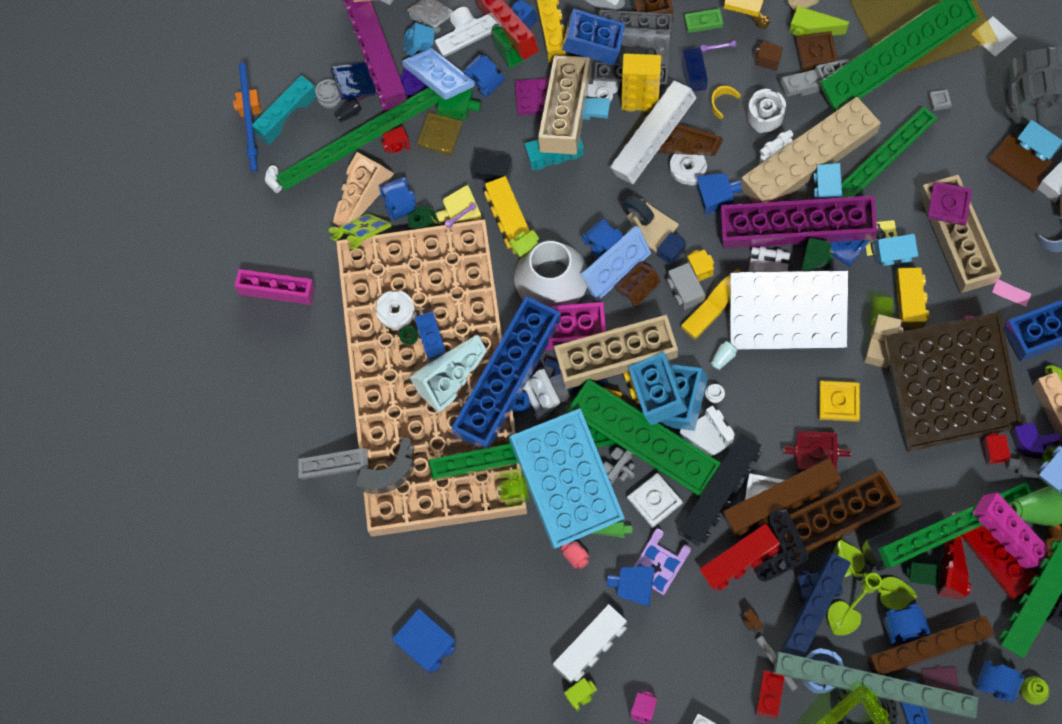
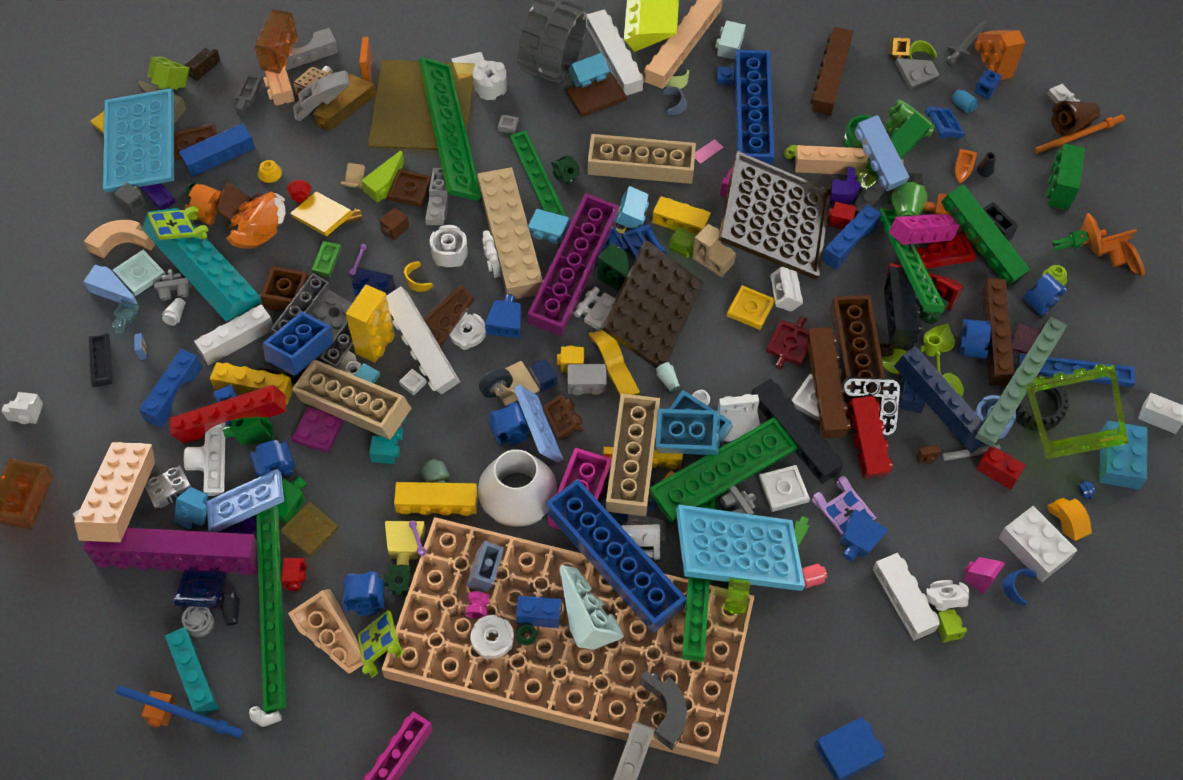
camera: 75 degrees left, 10 degrees down
(416, 286) = (477, 605): none -> dark pink wheel
(450, 275) = (485, 567): none -> sand blue brick
(491, 166) = (374, 495): black brick -> none
(524, 242) = (480, 490): lime brick -> none
(533, 205) = (435, 472): none -> sand green head
(607, 692) = (947, 595): none -> white plate
(613, 146) = (412, 382): none -> white plate
(852, 542) = (886, 349): none -> dark brown tile
(858, 272) = (635, 239): none -> blue plate
(875, 425) = (786, 289): none -> white brick
(908, 171) = (565, 169): none -> dark green brick
(949, 203) = (617, 148): magenta plate -> none
(959, 461) = (842, 245): none -> blue arch
(980, 59) = (490, 79): none -> white brick

